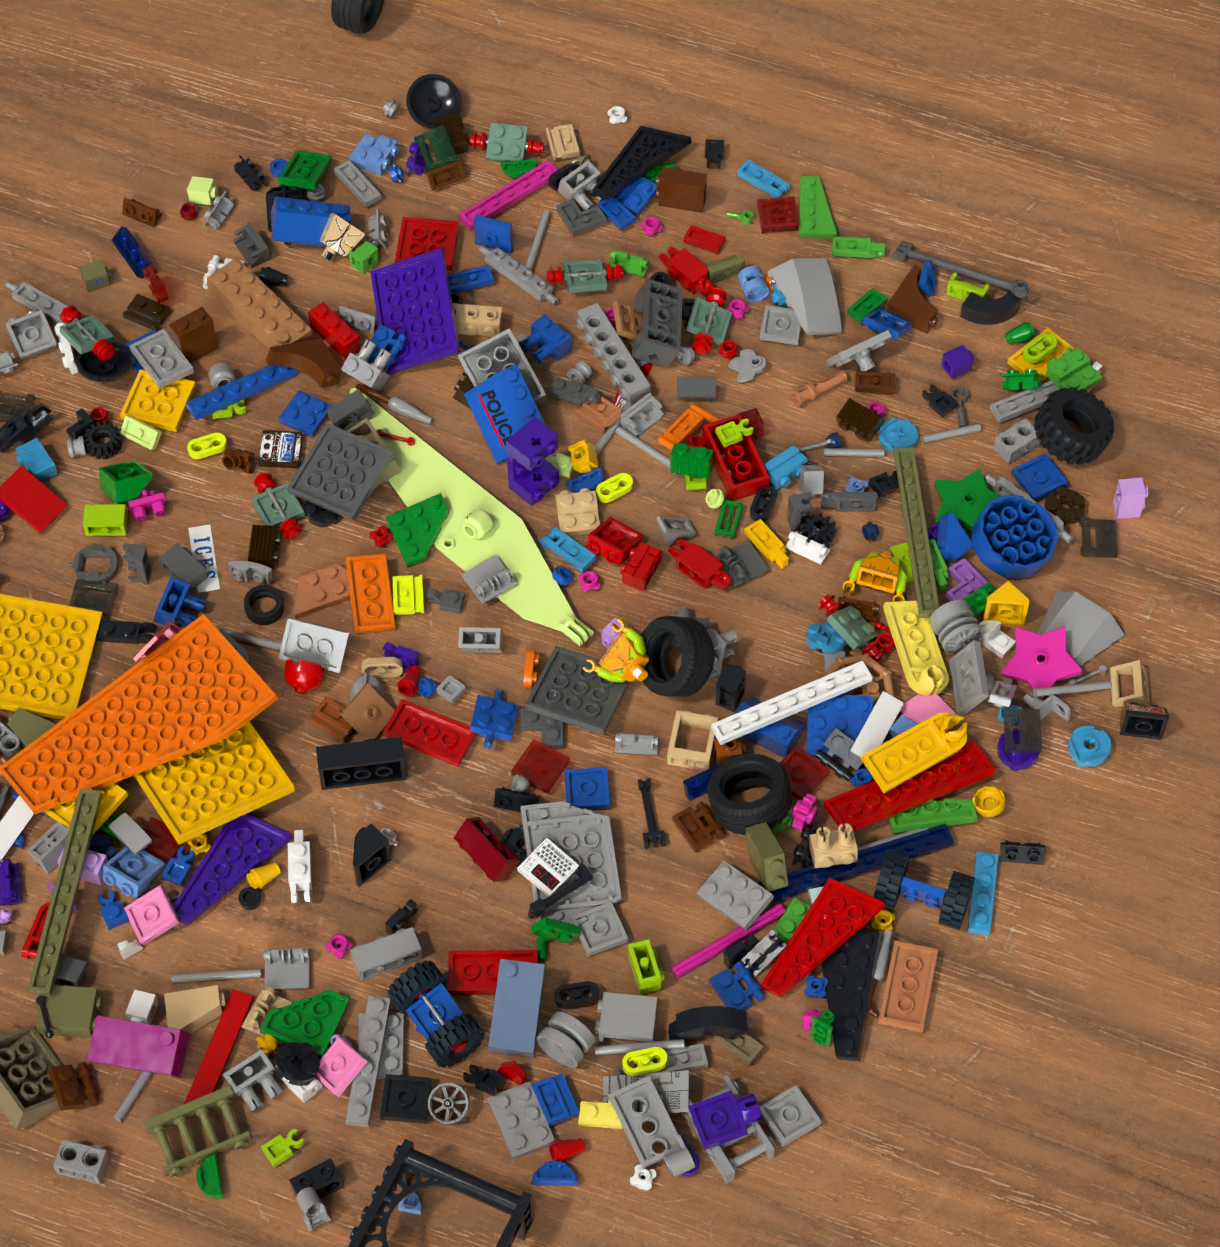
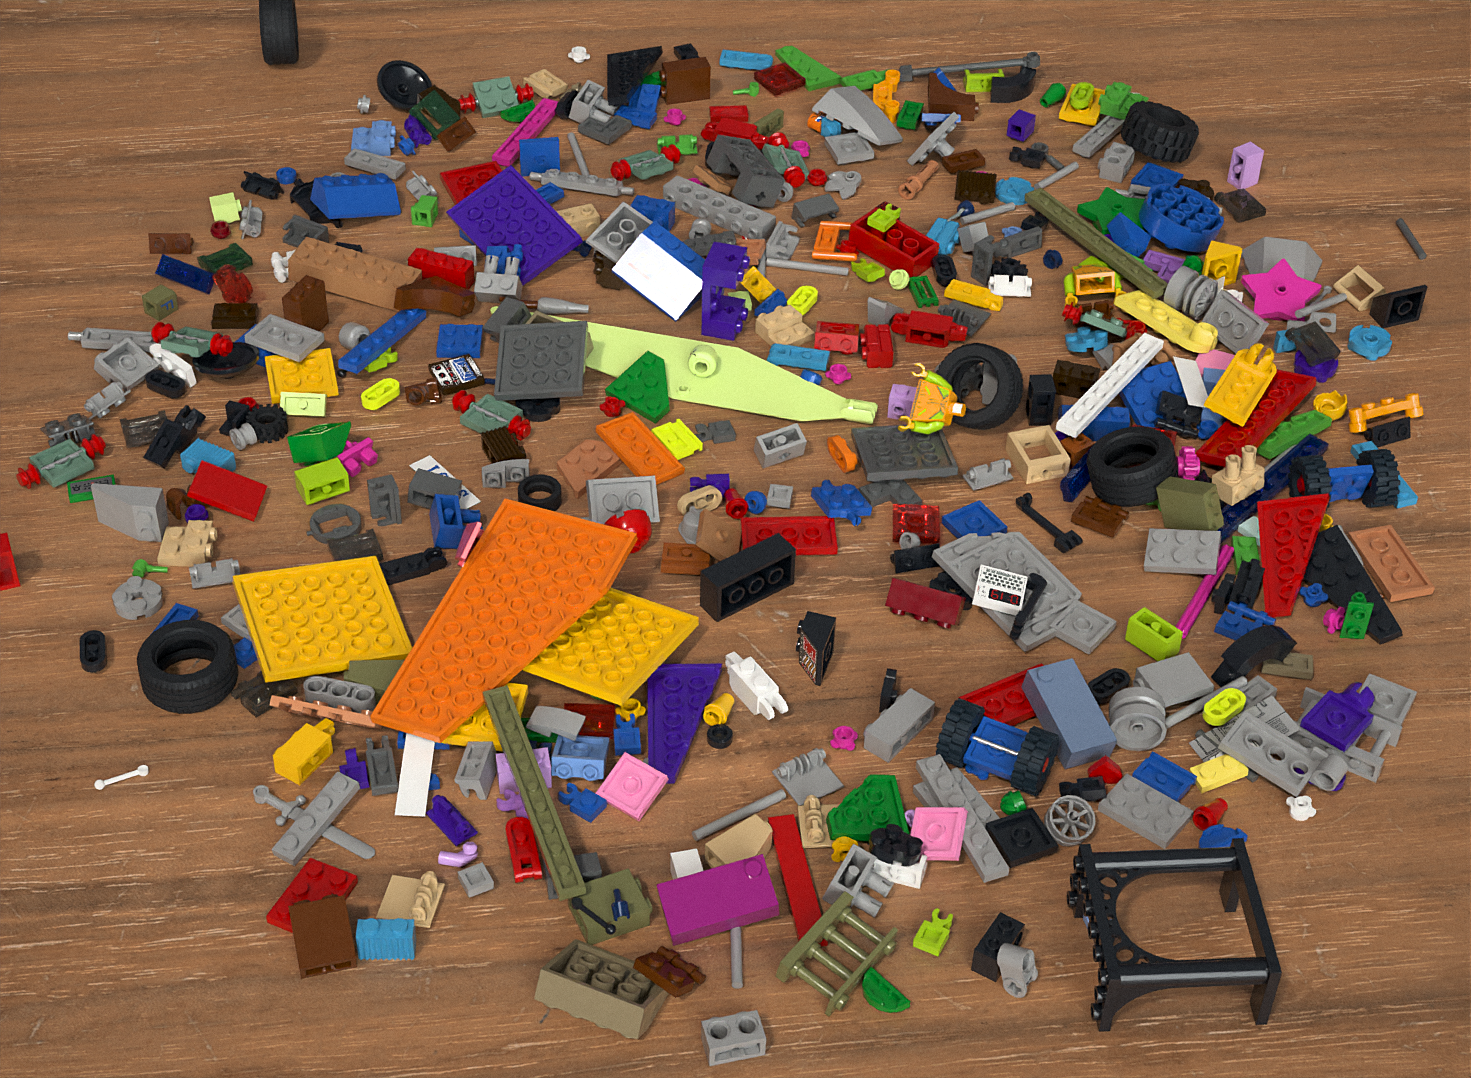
camera: 30 degrees left, 15 degrees down
(52, 367) = (165, 383): none -> black plate
(63, 1020) = (619, 907): none -> dark blue hand
(128, 949) = (628, 826): white tile -> none
(172, 249) = (233, 255): none -> clear green plate
(305, 170) = (318, 165): green plate -> none
(339, 237) = (392, 198): tan torso -> none
(422, 1066) = (1012, 803): none -> green plate
(489, 579) = (747, 400): light grey hinge -> none
(552, 929) = (1047, 637): green plate -> none
(691, 461) = (860, 253): green brick -> none
(753, 284) = (802, 126): medium blue wheel -> none
(781, 674) = (1074, 378): none -> dark brown brick
(858, 273) = (883, 94): none -> light orange plate
(1003, 693) = (1278, 323): light grey hinge -> none
(1029, 380) = (1092, 115): green hinge -> none
(1032, 824) = (1386, 405): none -> light orange plate

